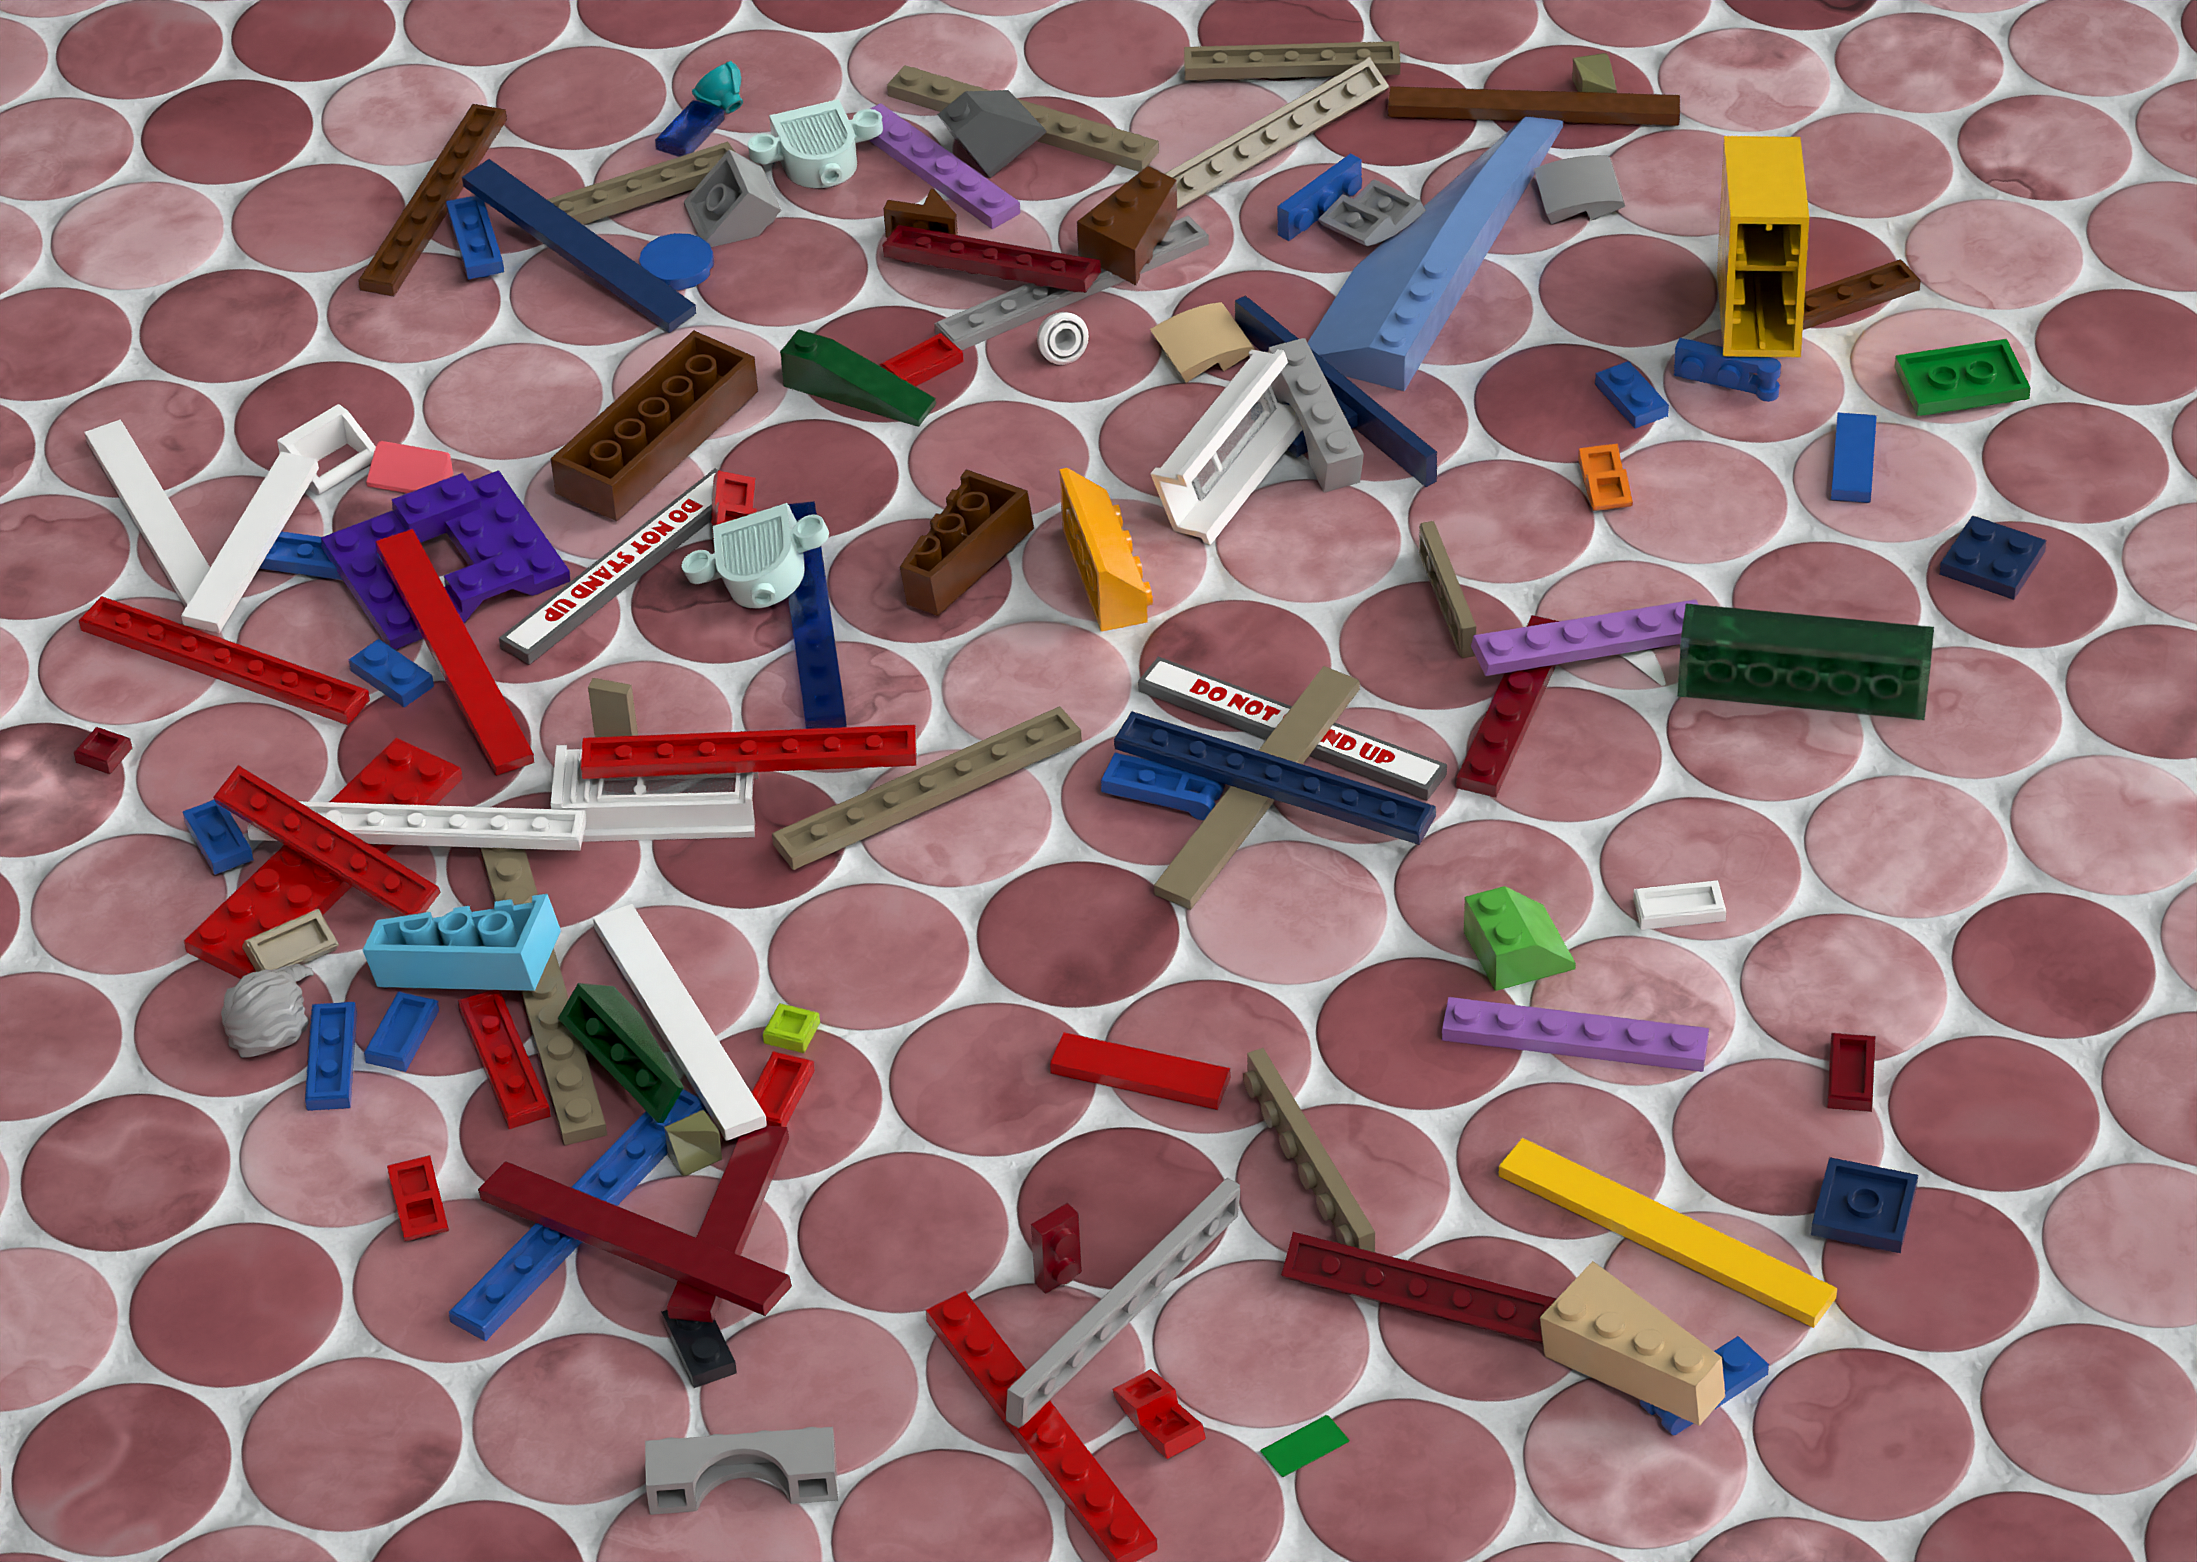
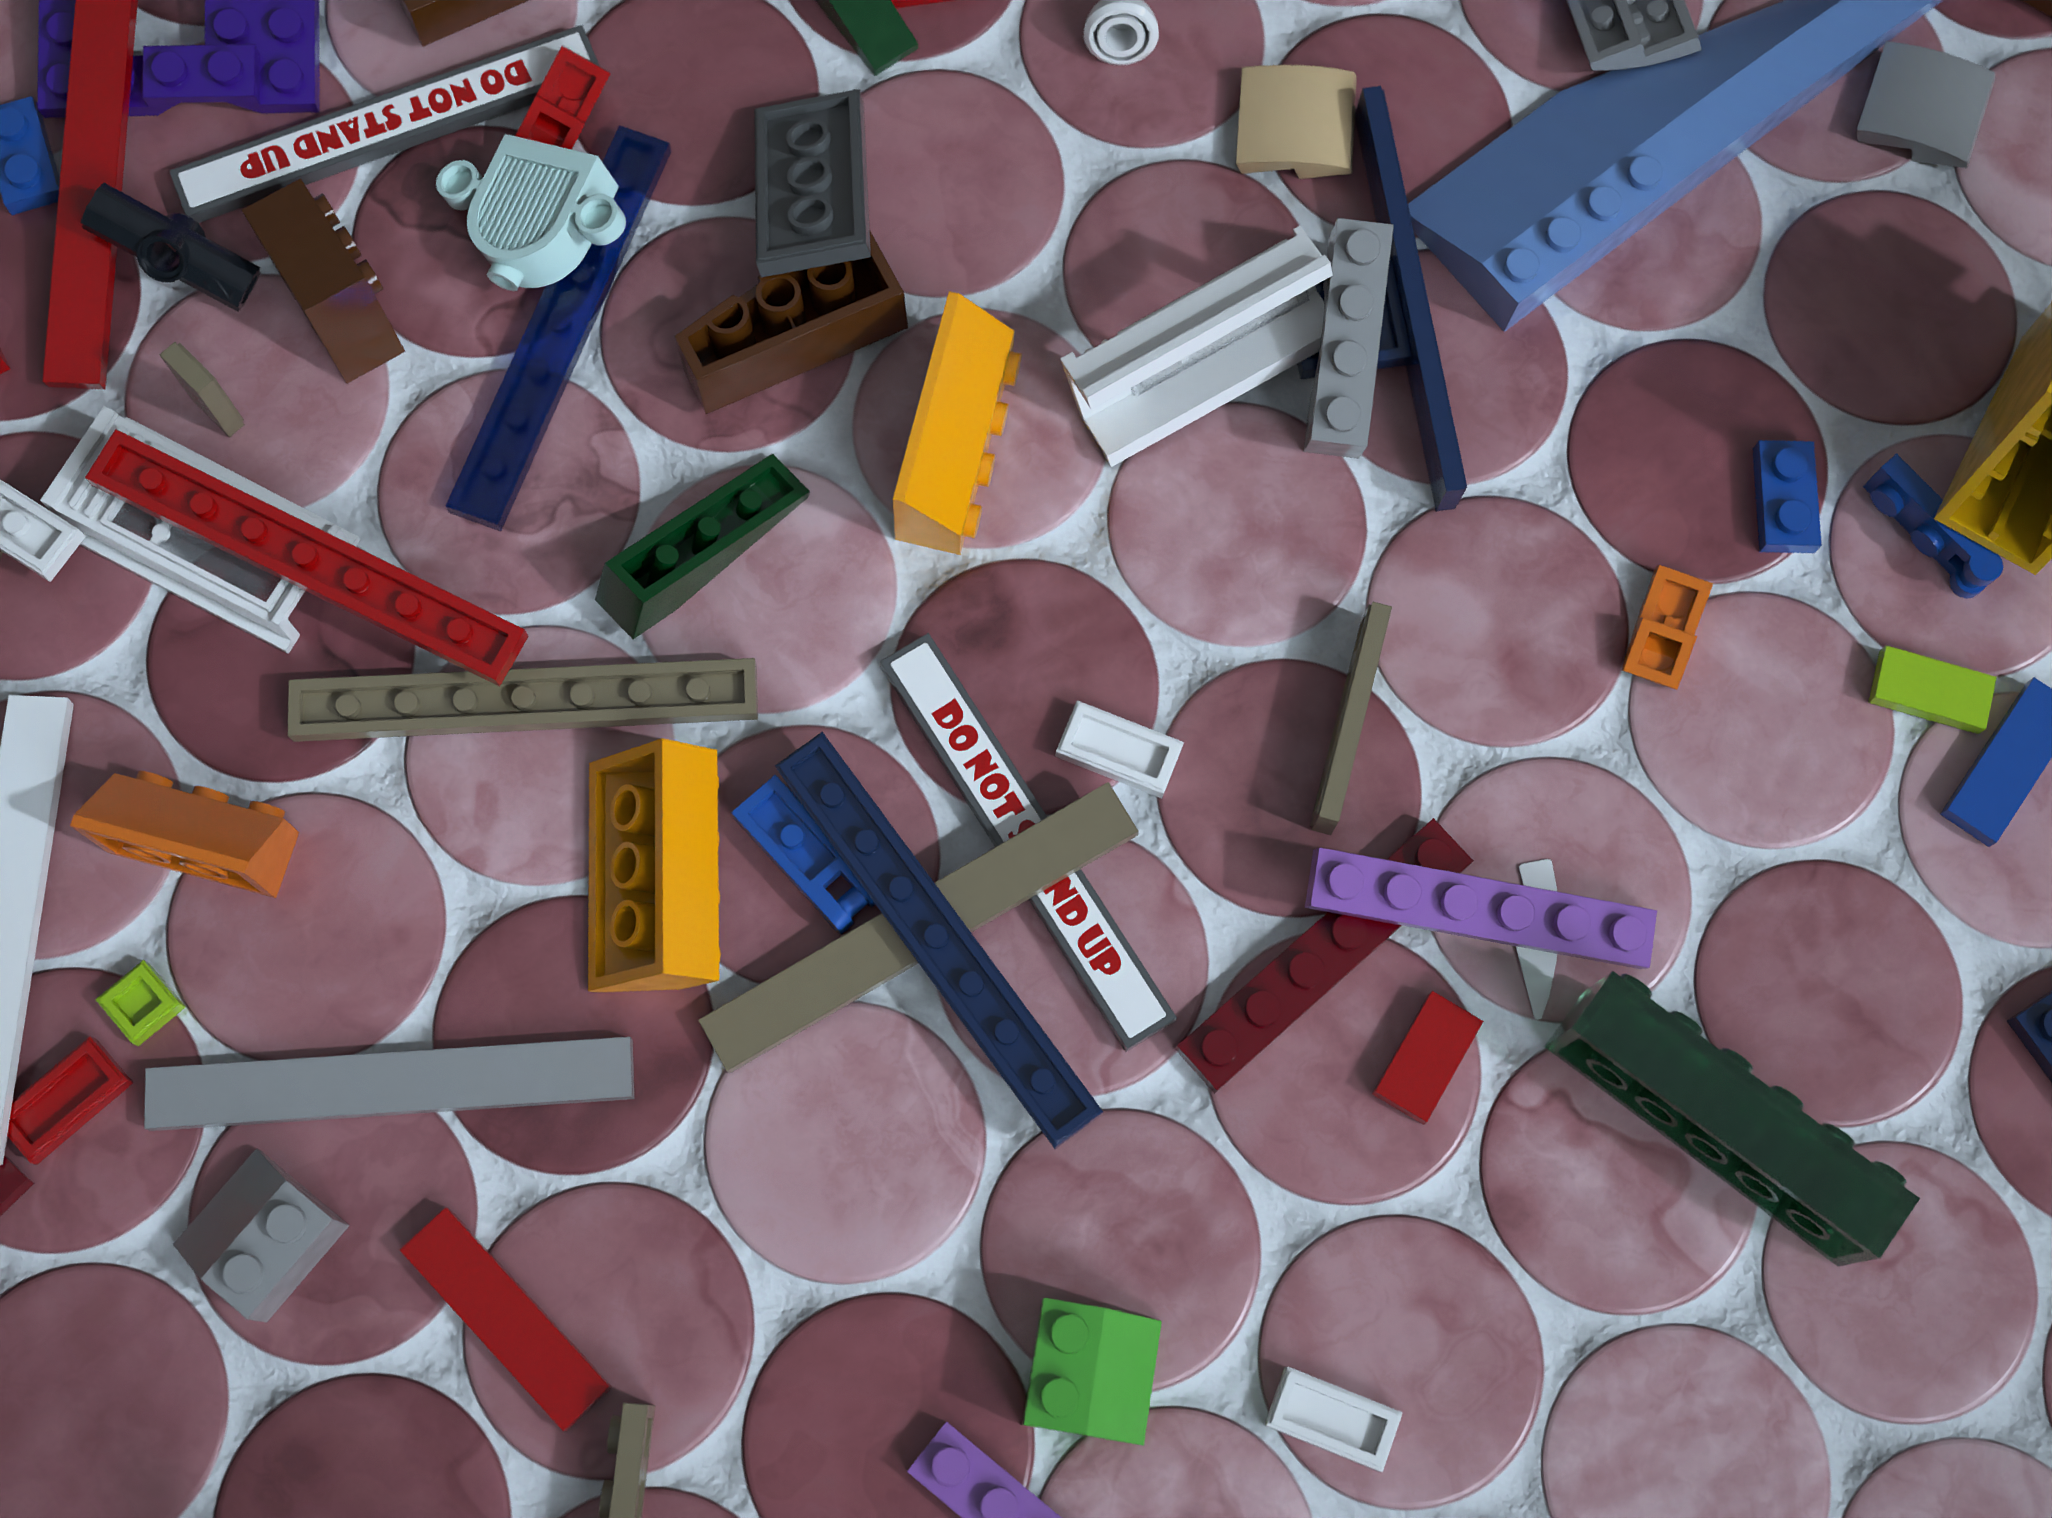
camera: 20 degrees right, 30 degrees up
(512, 657) = (146, 235): none -> black piece
(647, 638) = (324, 277): none -> reddish brown wedge
(769, 929) = (189, 831): none -> orange slope
(926, 472) = (811, 183): none -> dark grey tile
(958, 1091) = (259, 1238): none -> light grey slope
(979, 676) = (696, 545): none -> dark green slope
(980, 998) = (388, 1083): none -> light grey tile
(1070, 827) = (653, 868): none -> light orange slope
(1301, 665) = (1119, 749): none -> white tile
(1611, 724) = (1427, 1057): none -> red tile
(1783, 444) = (1932, 689): none -> lime tile

